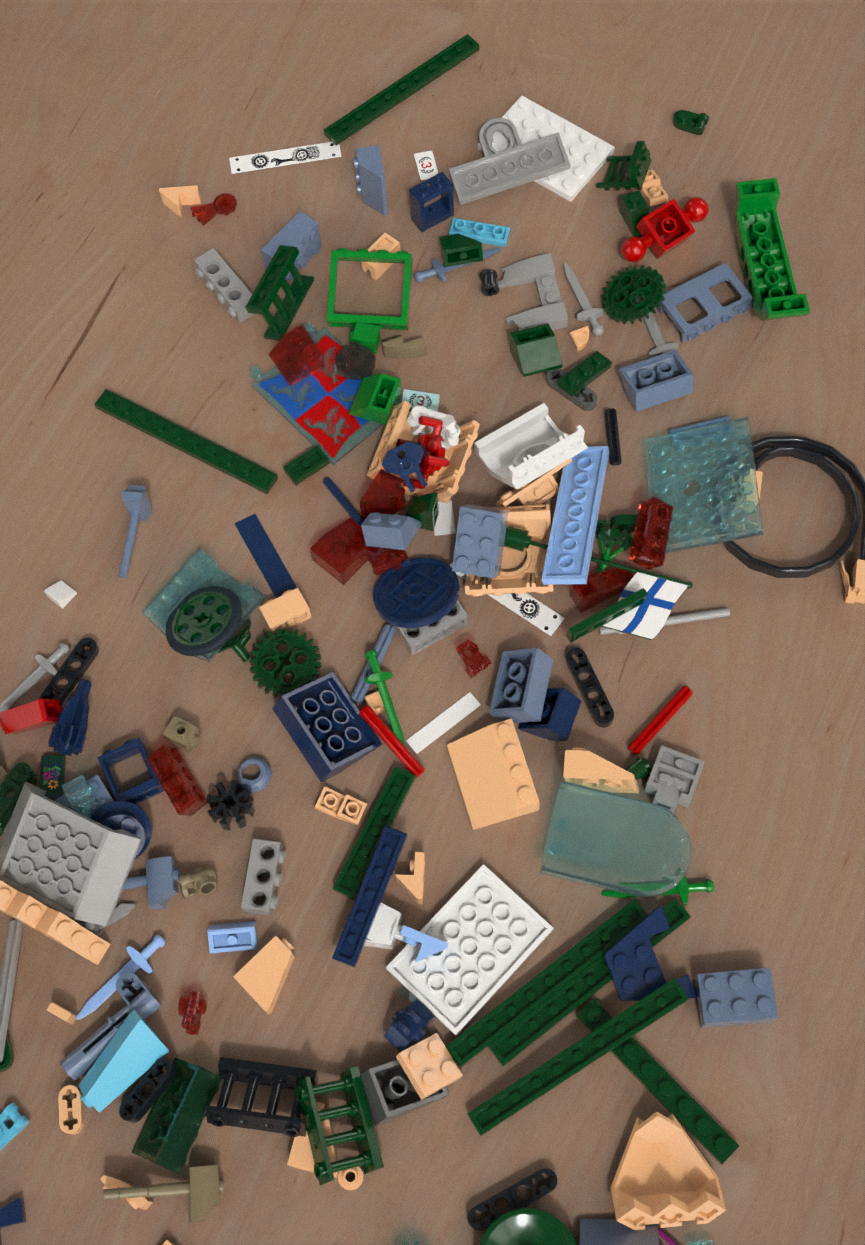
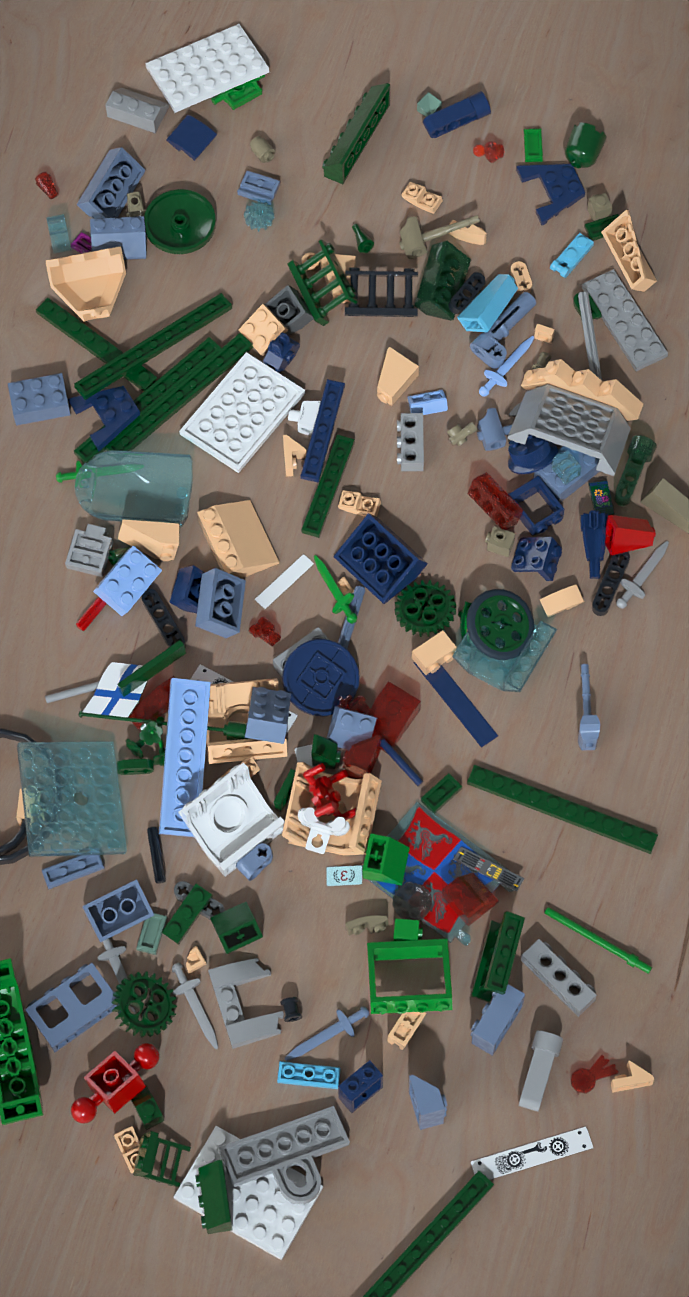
camera: 170 degrees right, 0 degrees up
(60, 593) = (638, 650): white slope -> none
(76, 971) = (542, 361): none -> dark tan pin
(124, 656) = (562, 600): none -> light nougat slope
(146, 711) = (537, 555): none -> dark blue bracket
(153, 298) = (631, 959): none -> green bar
(191, 1009) = (446, 348): clear red plate -> none
(227, 814) = (456, 494): black gear -> none
(261, 212) = (545, 1048): none -> light grey beam
(263, 779) = (434, 530): sand blue piece -> none
(272, 386) = (488, 869): none -> dark grey sticker
(273, 1200) = (364, 243): none -> dark green cone
(391, 741) = (325, 556): red axle -> none
(406, 465) = (342, 776): dark blue hinge -> none
(426, 165) = (376, 1159): white sticker -> none
(429, 944) = (275, 402): light blue slope -> none
(460, 250) = (328, 1041): dark green slope -> none
(469, 483) = (285, 791): none -> dark green tile
(508, 413) = (253, 863): none -> sand blue piece
(513, 1201) = (196, 264): black beam -> none
(577, 126) = (214, 1198): none -> dark green slope
(623, 357) = (151, 934): none -> sand green tile
(630, 728) = (127, 580): none -> light blue brick
(651, 533) = (116, 745): clear red brick -> none
(684, 121) = (99, 1246): dark green plate -> none

